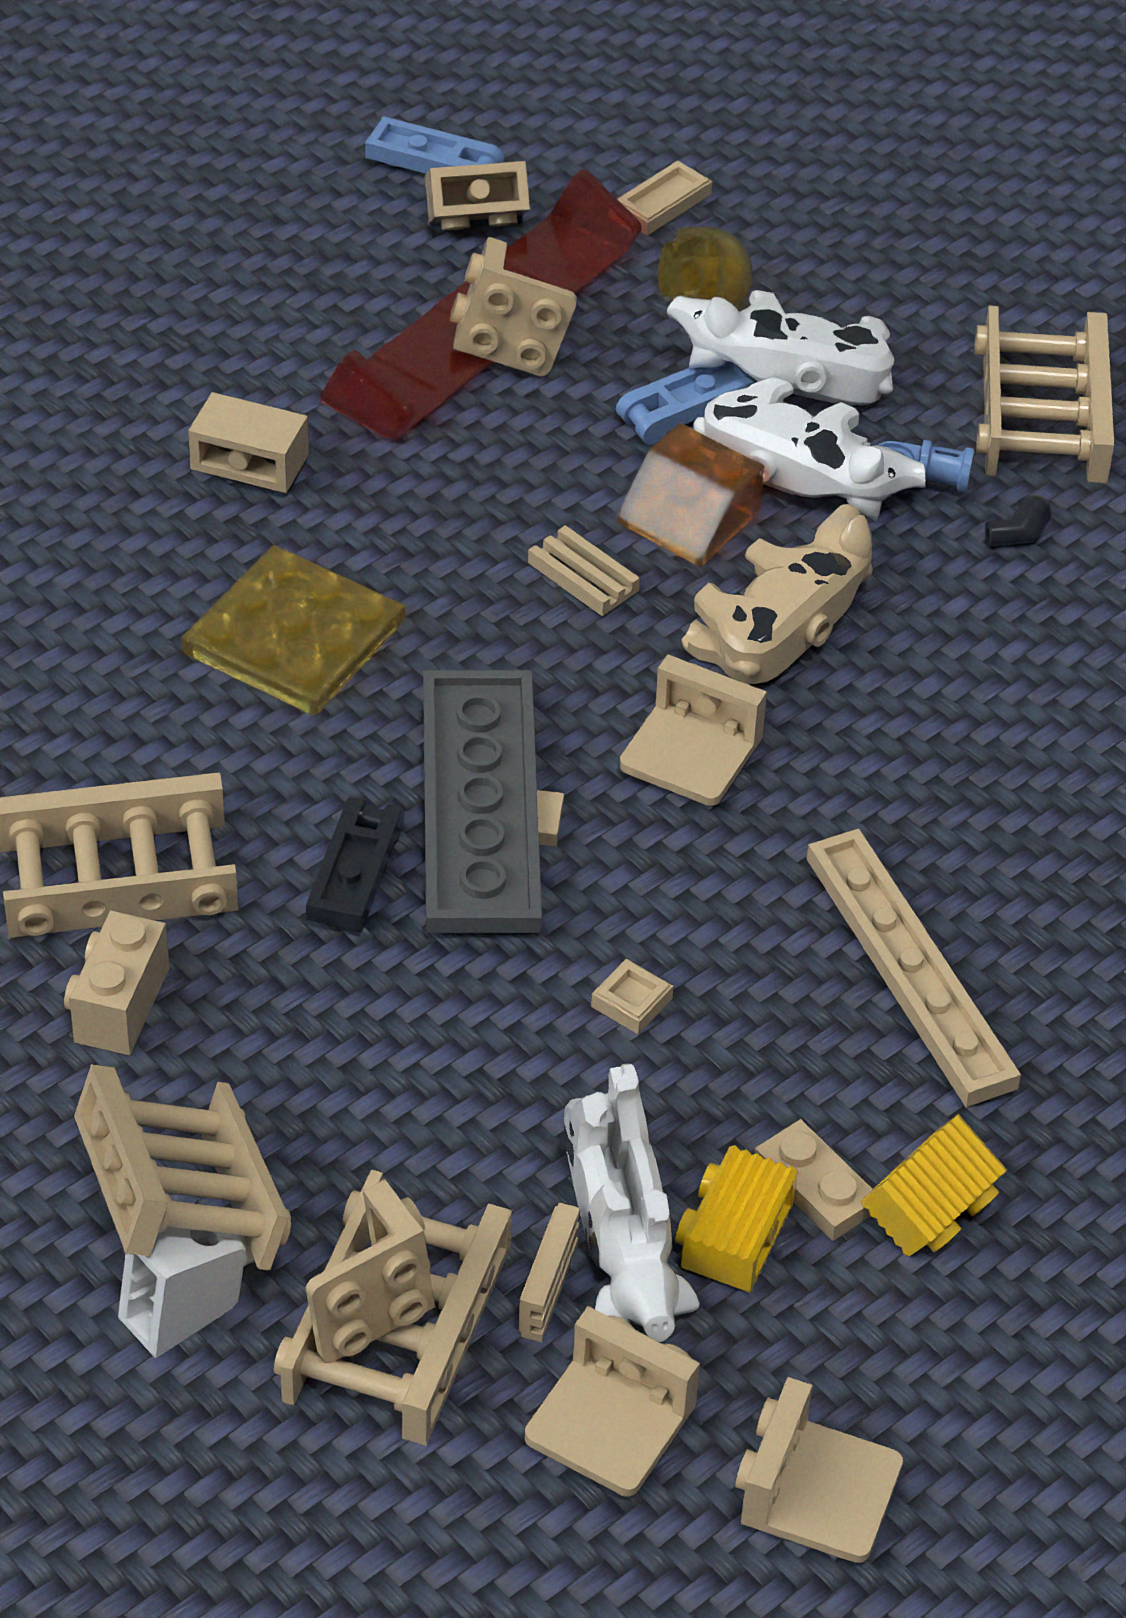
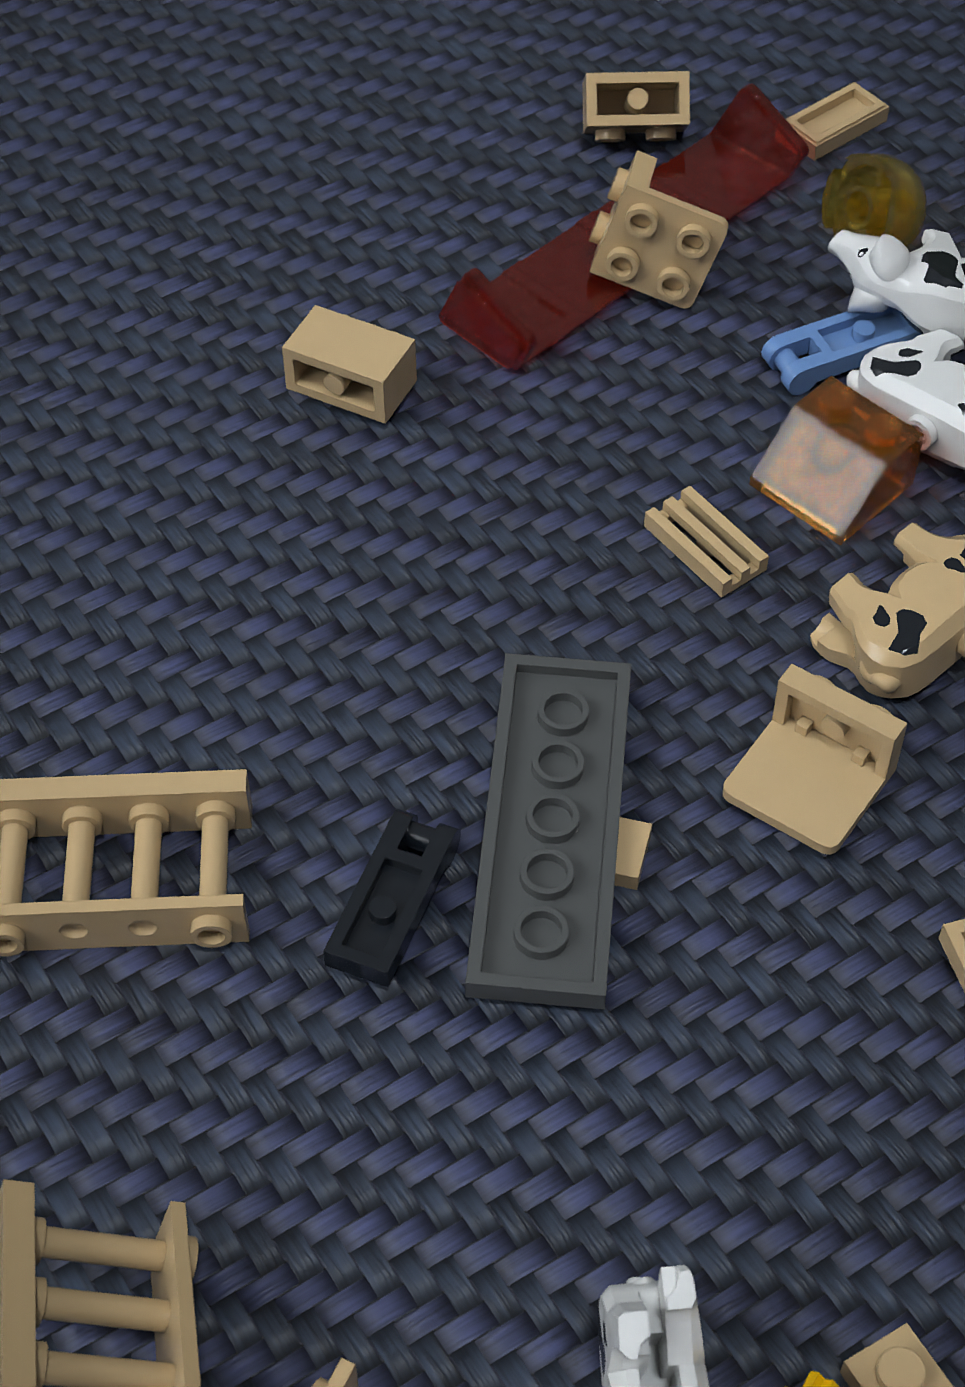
camera: 10 degrees right, 5 degrees up
(118, 982) = (81, 1037): tan brick -> none
(293, 629) = (368, 588): clear yellow plate -> none
(426, 148) = (579, 52): medium blue plate -> none
(632, 996) = (707, 1111): tan tile -> none

